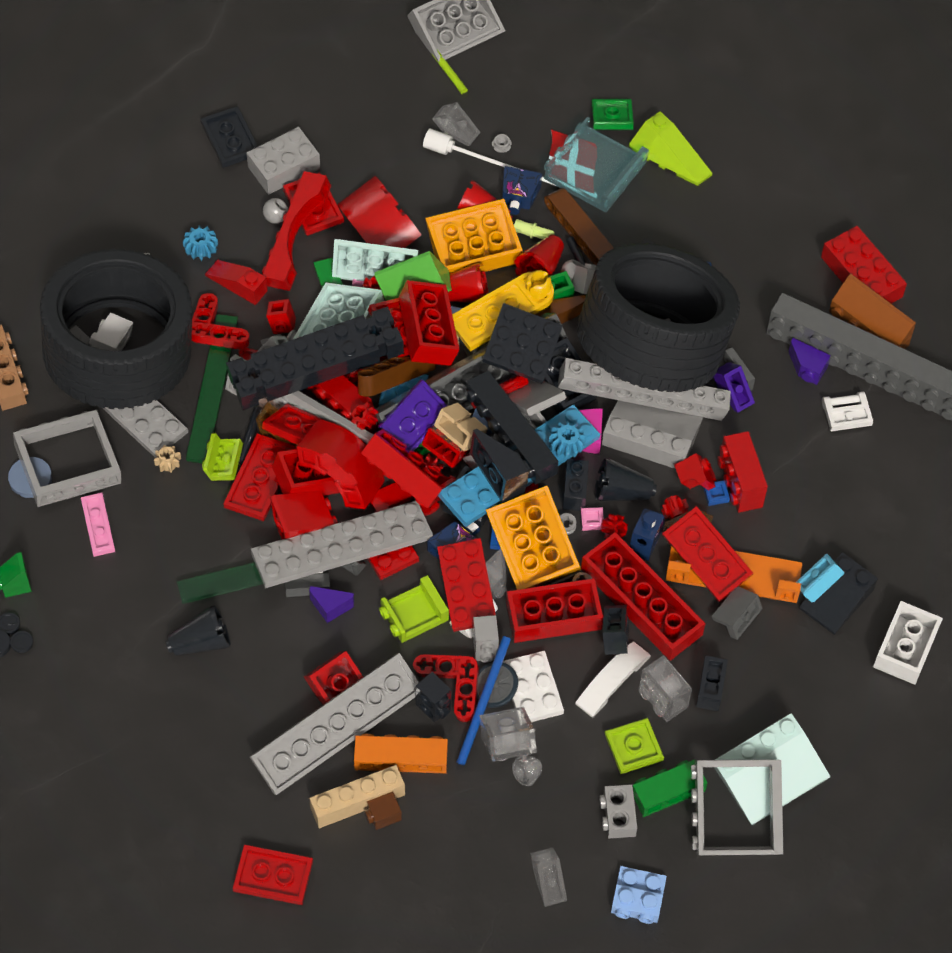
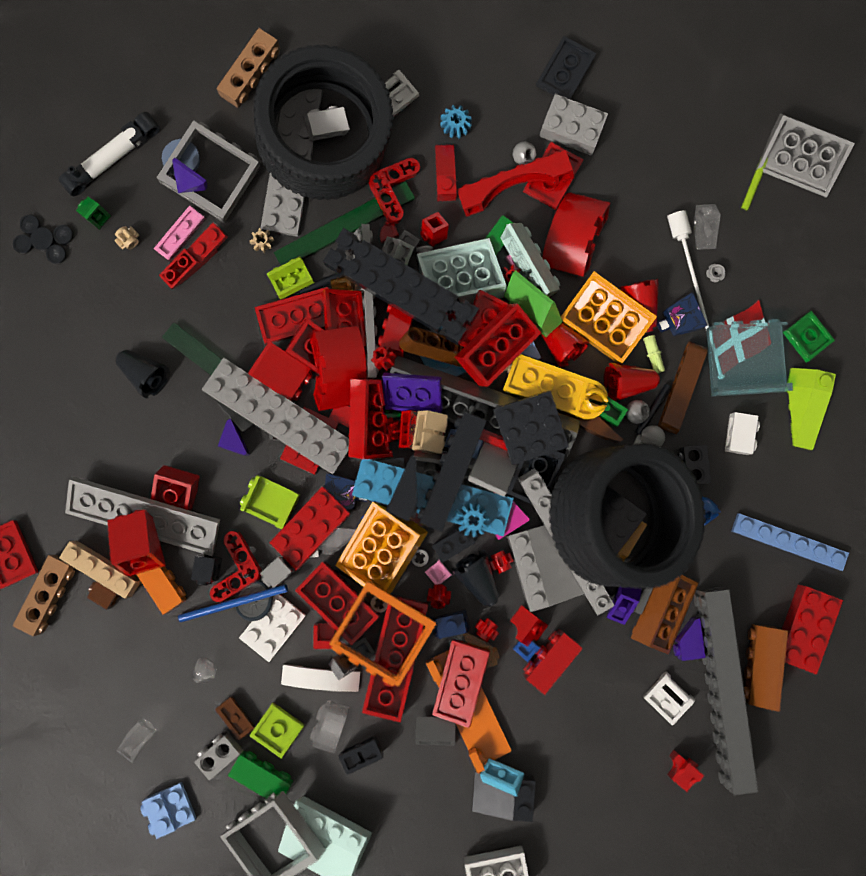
camera: 55 degrees right, 25 degrees up
(61, 468) = (187, 179): none -> dark purple slope
(64, 566) = (126, 238): none -> tan gear
(132, 521) = (194, 257): none -> red slope
(352, 898) = (26, 619): none -> medium nougat brick
(361, 733) = (134, 543): none -> red slope
(508, 734) = (214, 641): clear brick -> none
(576, 649) = (323, 635): none -> red panel
(583, 277) = (634, 429): light grey brick -> none
(594, 774) = (235, 718): none -> reddish brown plate
(601, 546) = (372, 667): none -> orange window
(623, 456) = (501, 561): none -> red gear
(656, 211) = (742, 433): none -> white brick
(766, 363) = (664, 614): none -> dark orange slope
(778, 238) = (790, 542): none -> medium blue plate
(920, 438) = (684, 771): none -> red brick

